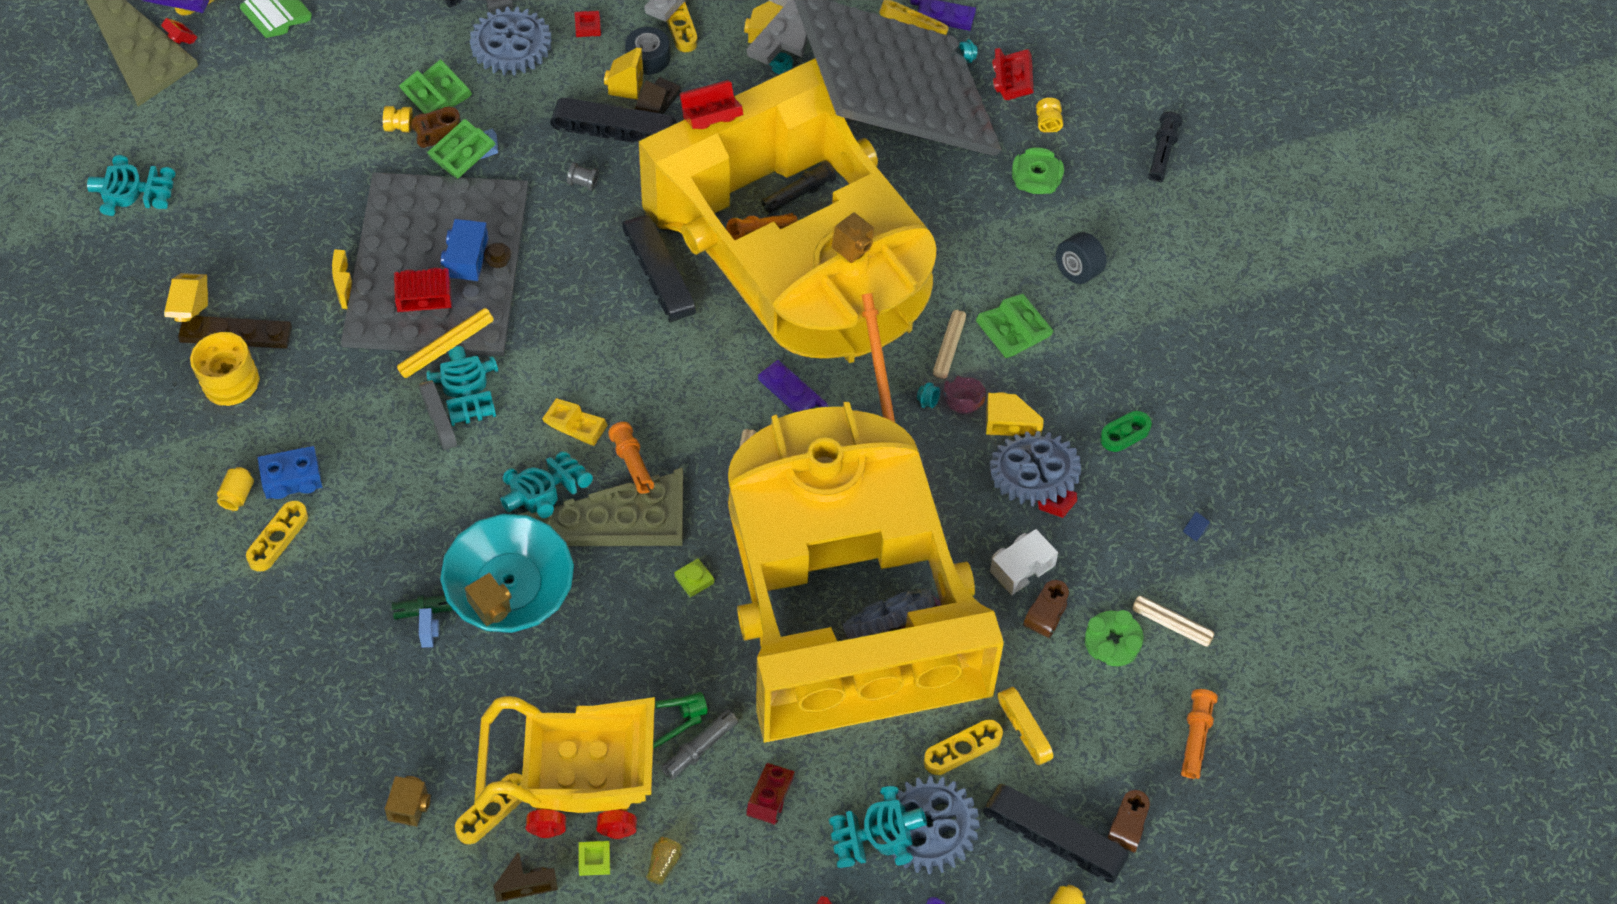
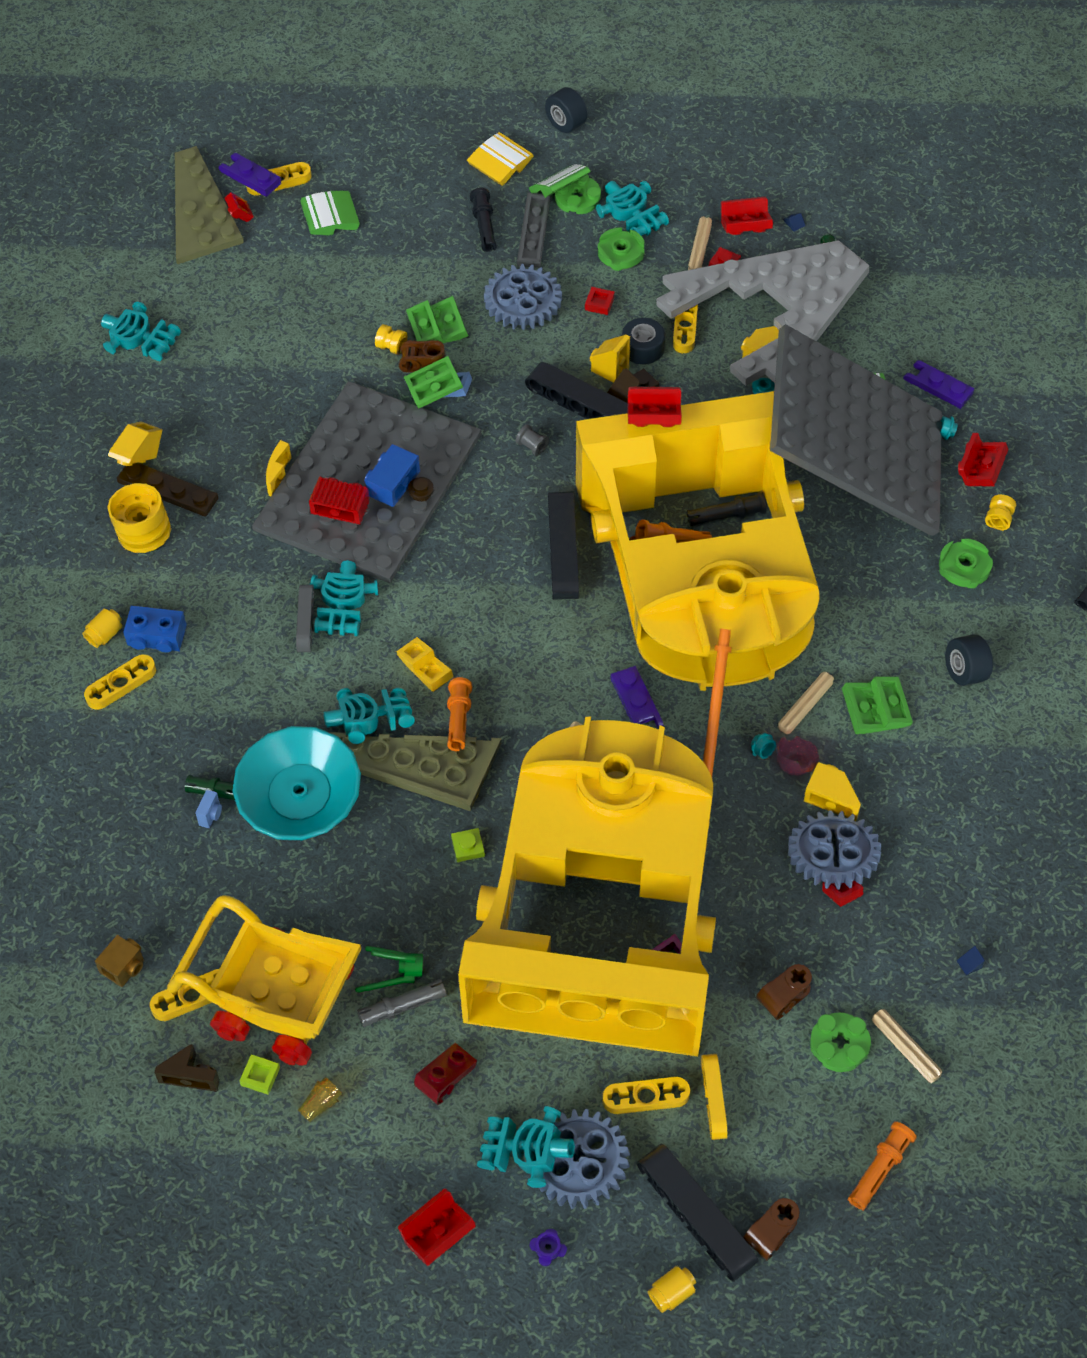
camera: 25 degrees right, 0 degrees up
(445, 343) = (339, 554): yellow axle -> none
(489, 599) = (266, 801): pearl gold brick -> none
(852, 237) = (731, 571): pearl gold brick -> none
(887, 614) = (617, 940): sand blue gear -> none
(901, 13) = (905, 380): yellow beam -> none
(1026, 557) = (782, 934): white brick -> none
(1124, 432) = (940, 845): green plate -> none

